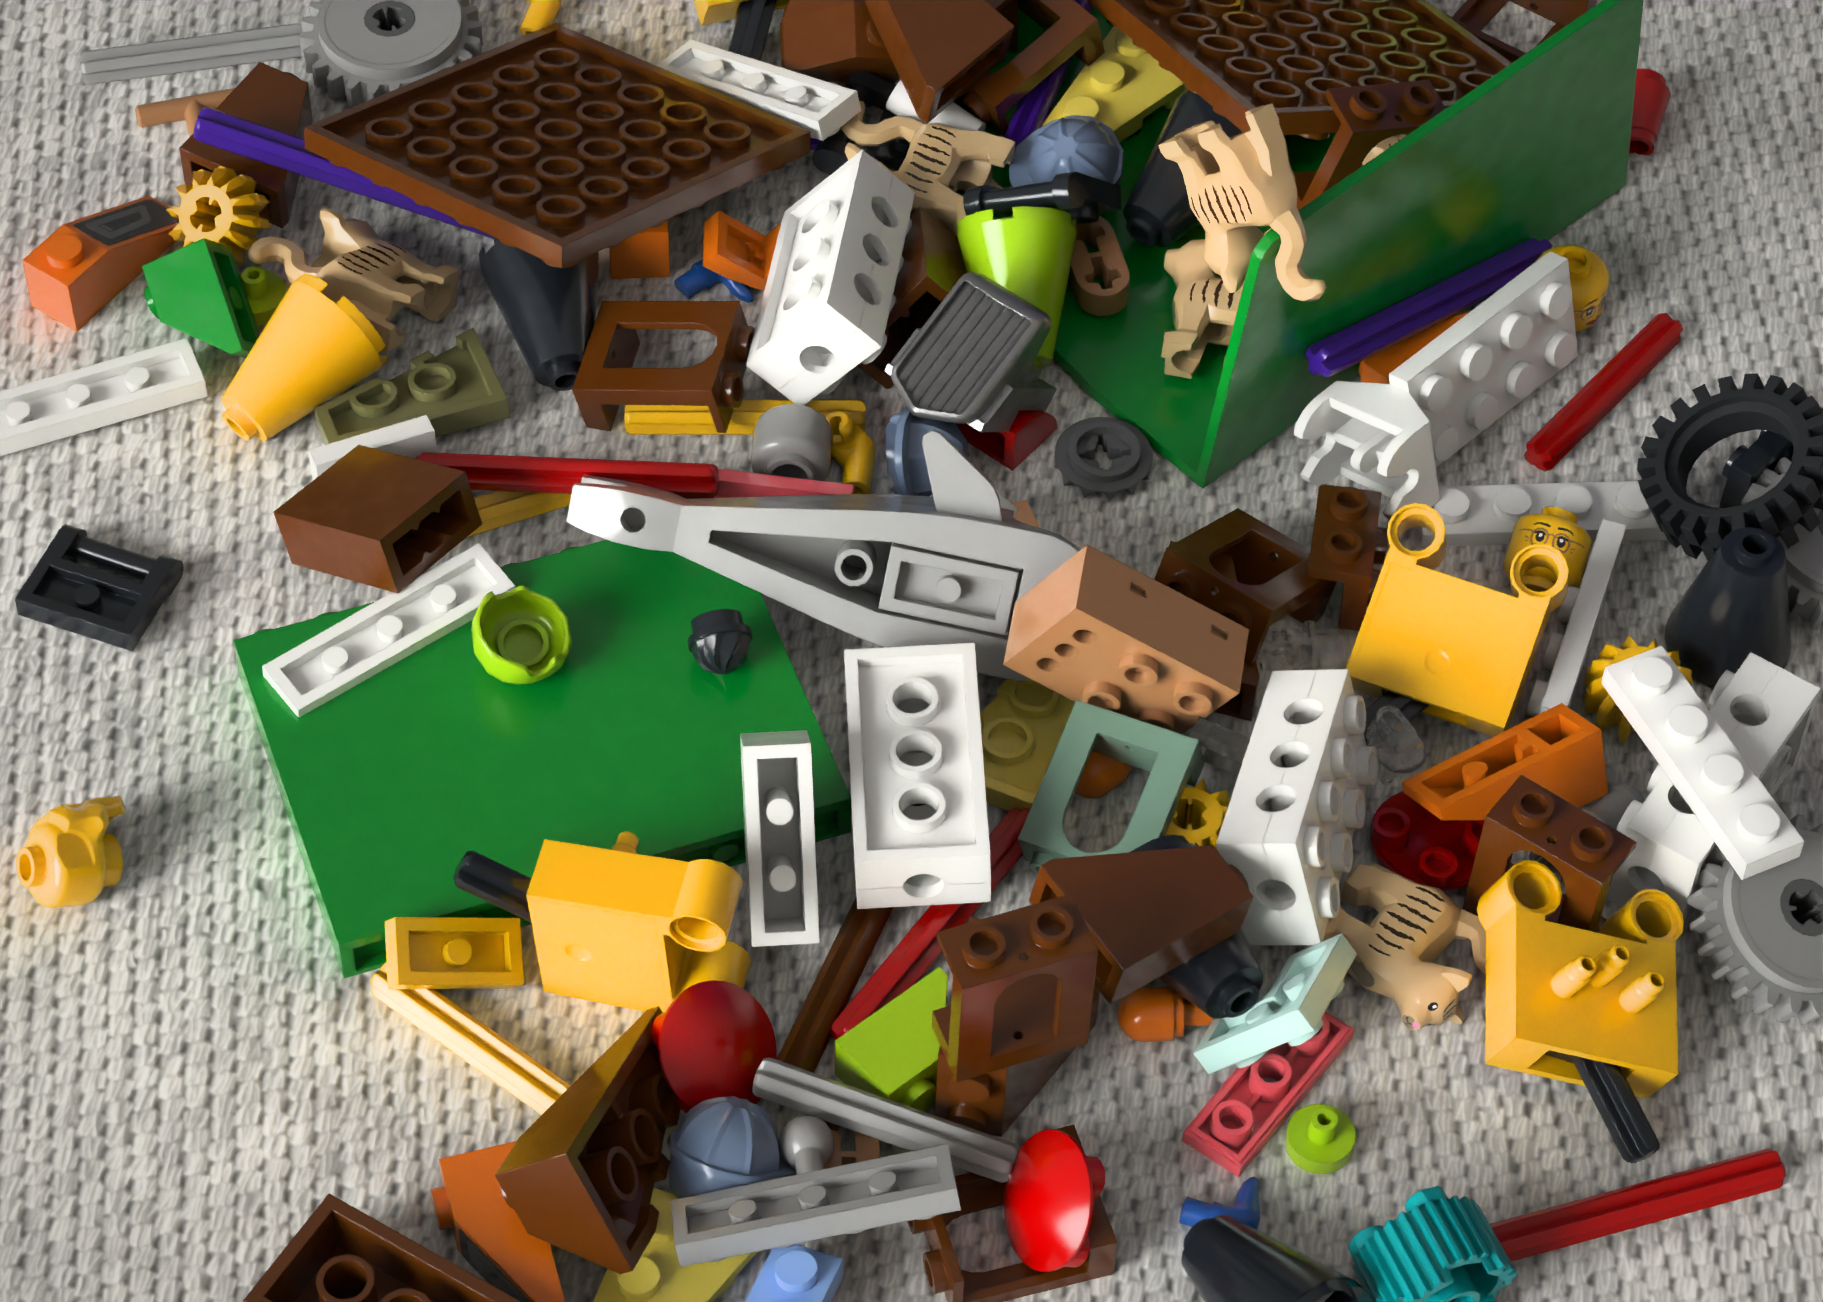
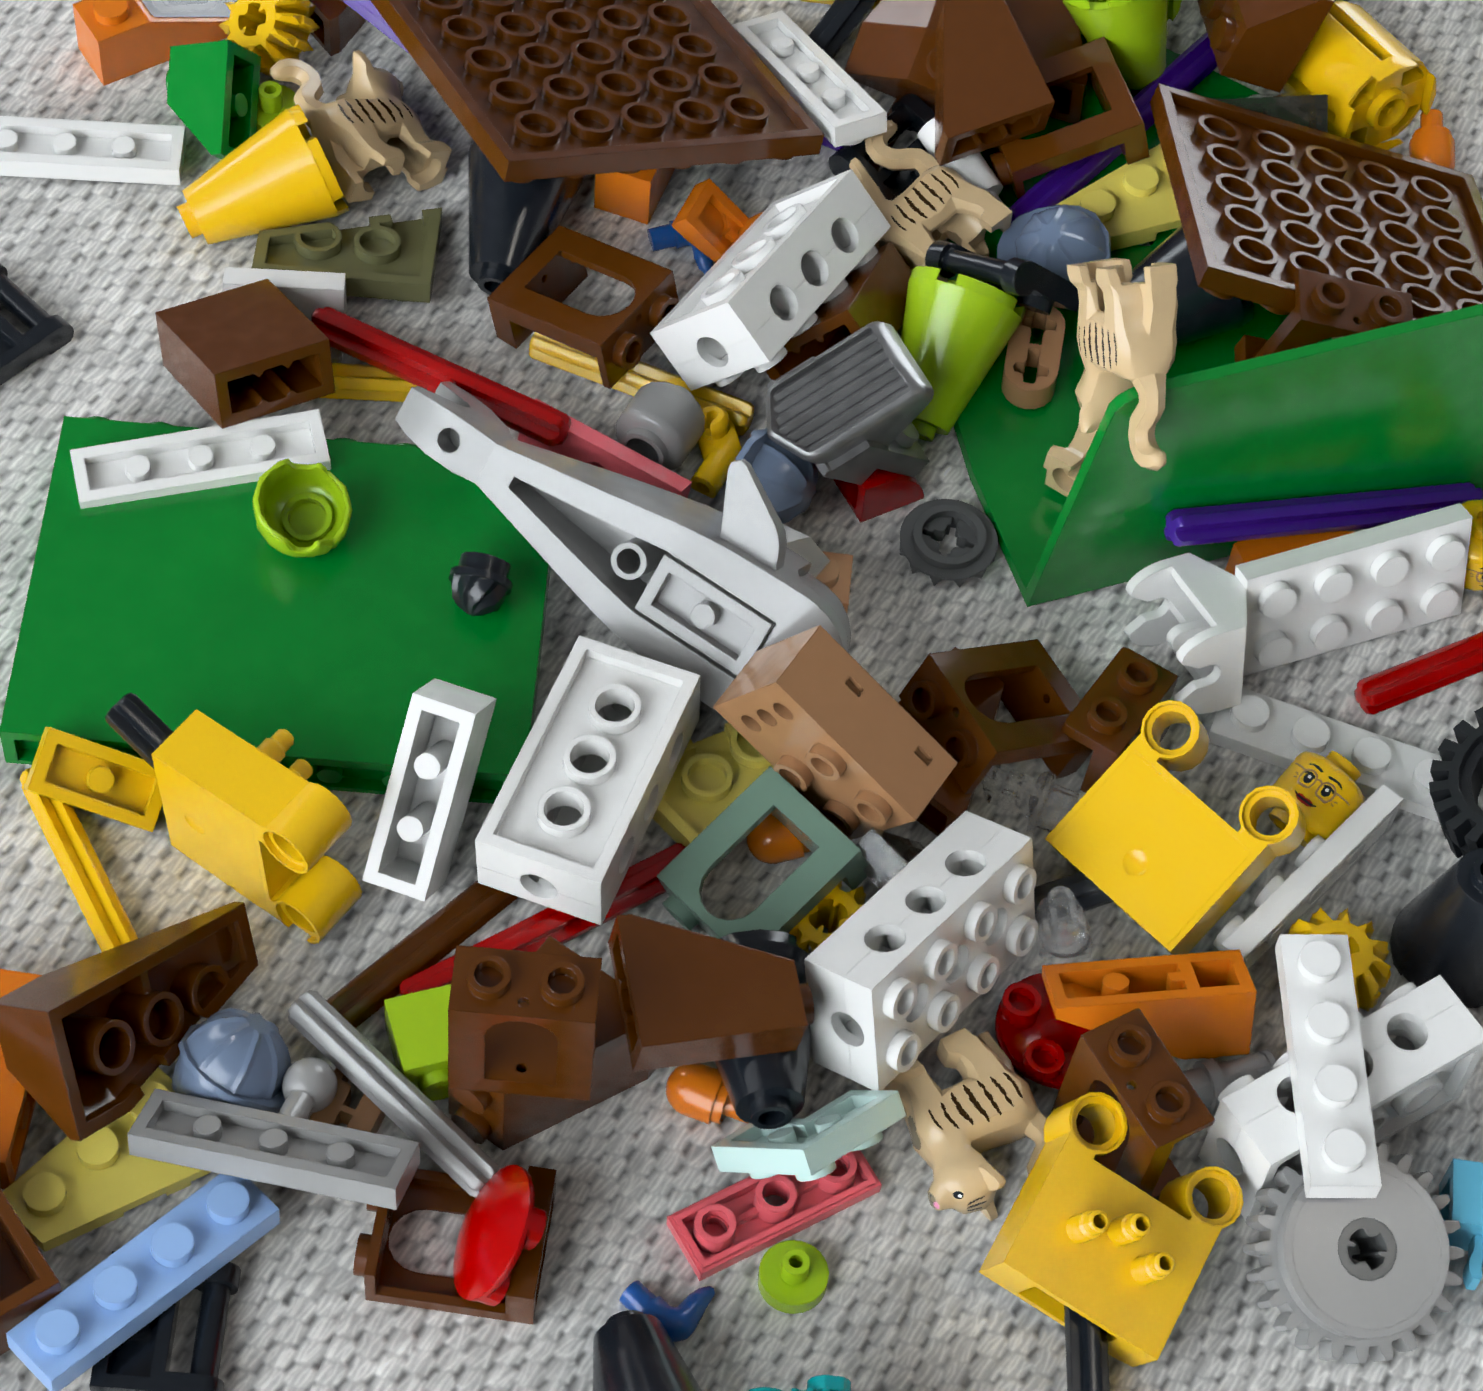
camera: 20 degrees right, 5 degrees up
(713, 1043) = (274, 956): red dish -> none

